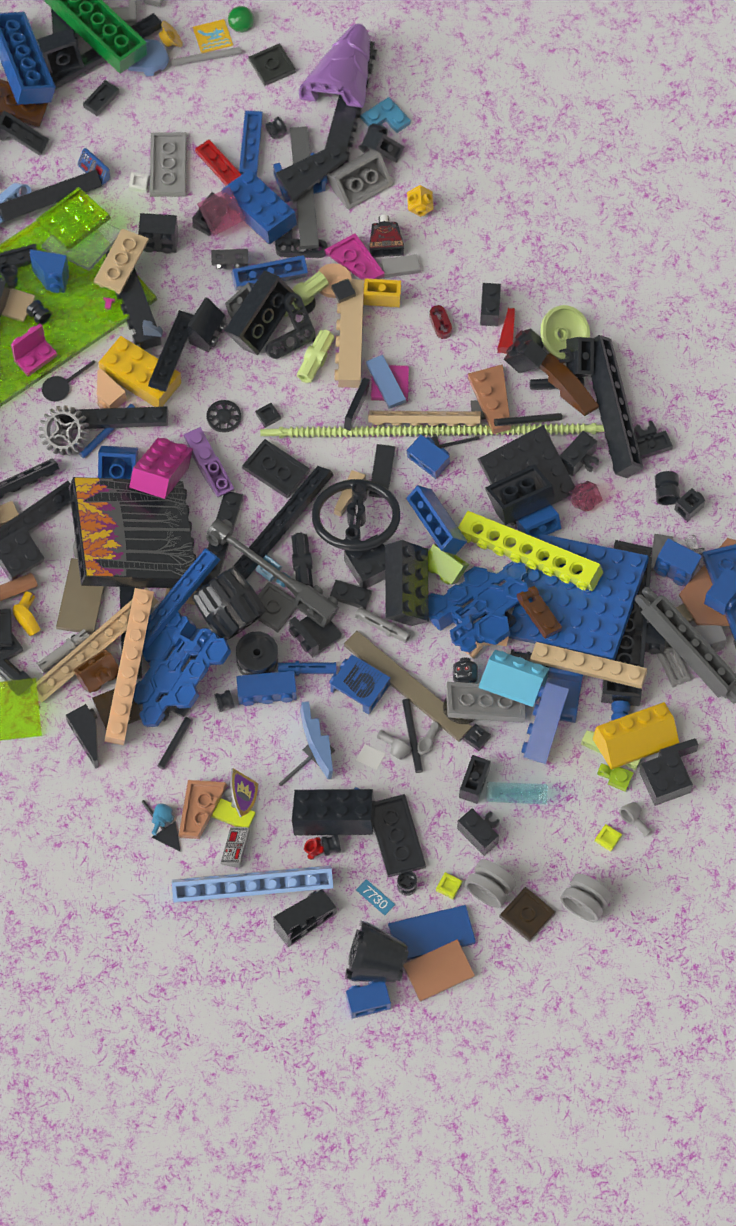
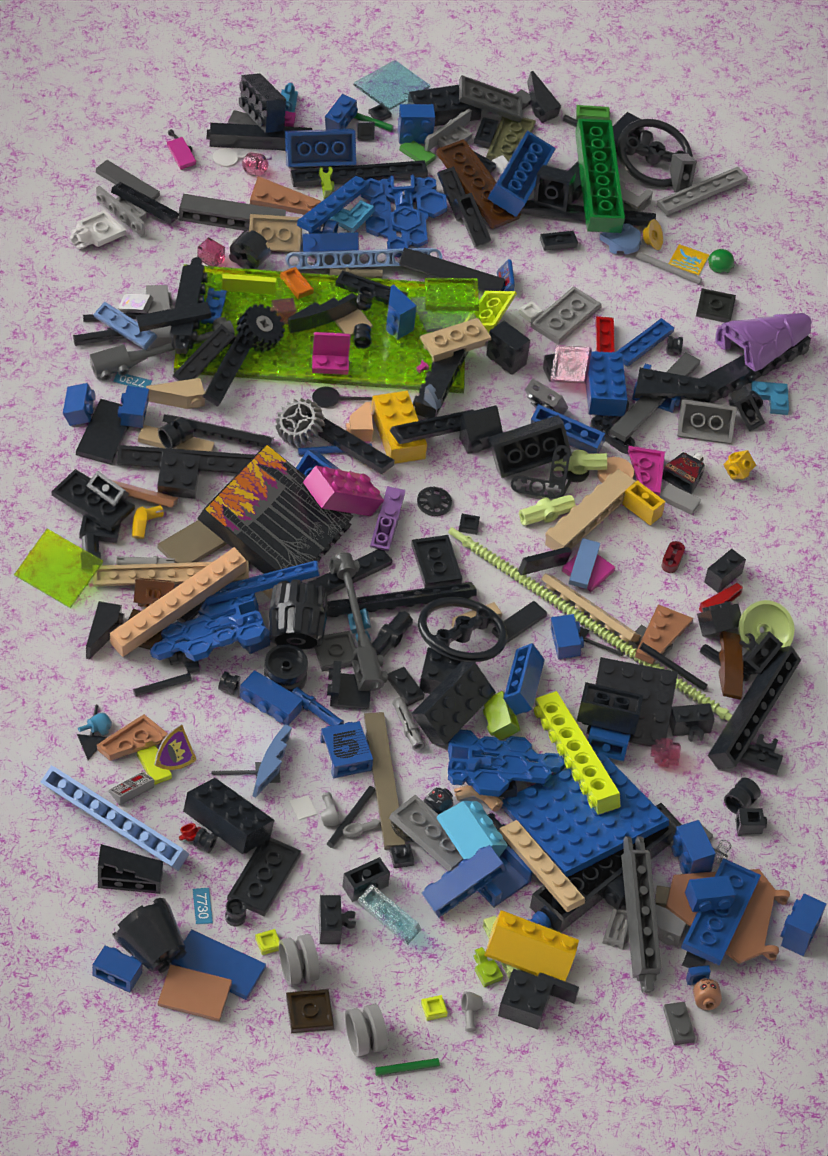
camera: 35 degrees right, 15 degrees down
(118, 203) = (493, 306): none -> neon yellow slope
(343, 290) = (611, 476): black tile -> none
(539, 612) = (538, 798): reddish brown plate -> none
(631, 899) = (409, 1066): none -> green bar

